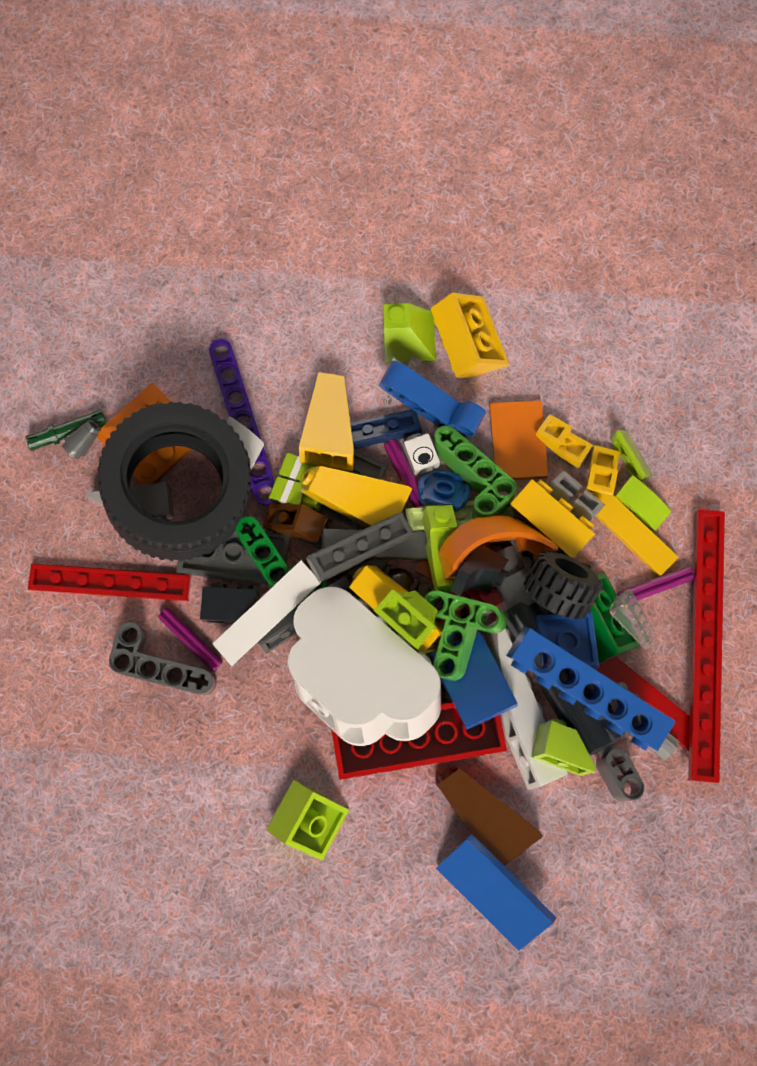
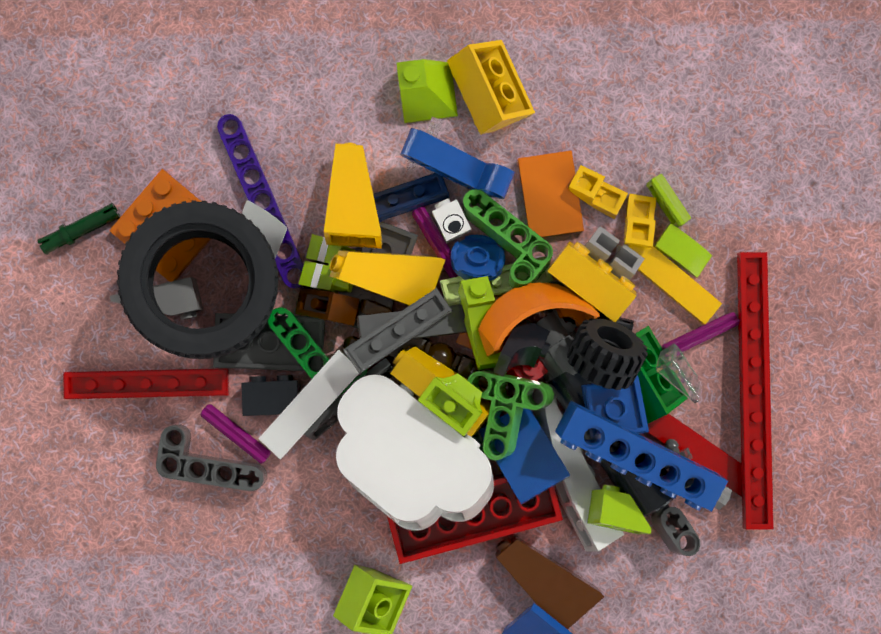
camera: 10 degrees left, 10 degrees up
(81, 439) = (95, 240): dark grey cone -> none

